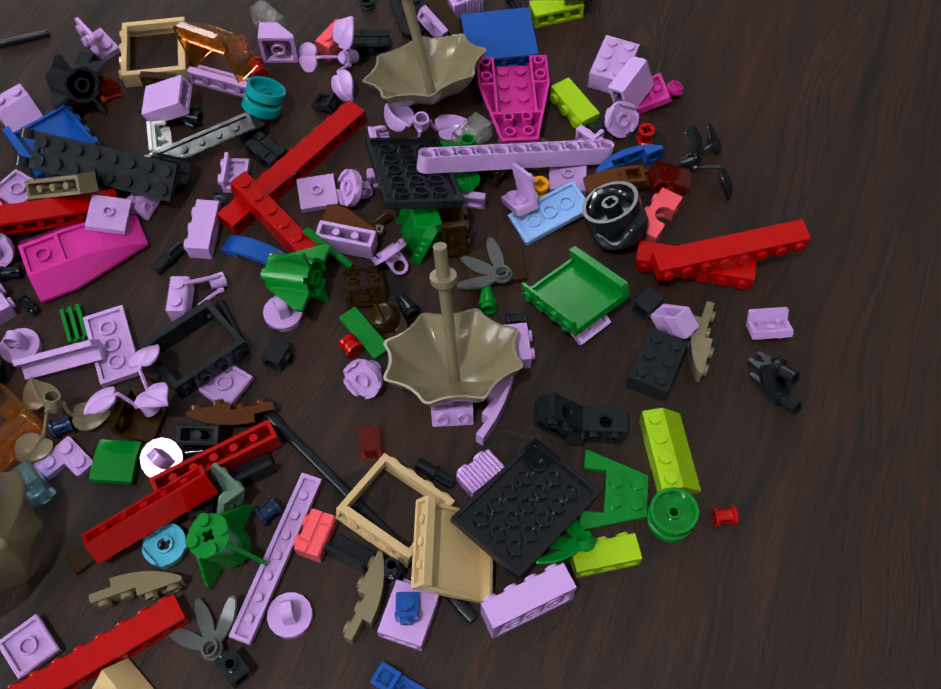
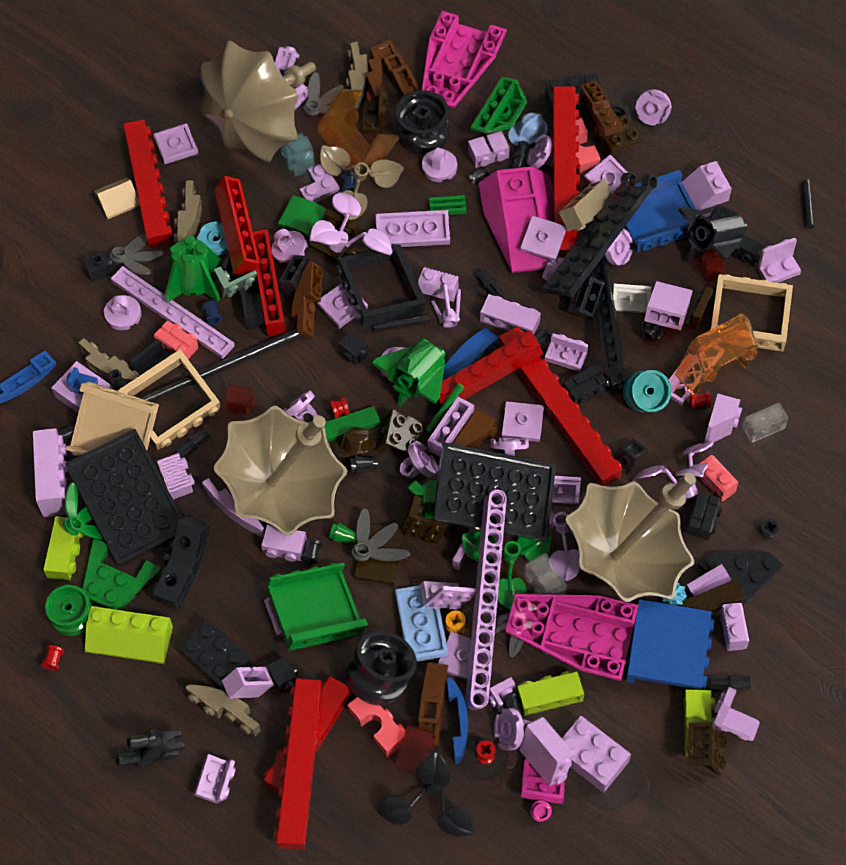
camera: 110 degrees right, 0 degrees up
(61, 359) = (409, 187): lavender fence -> none

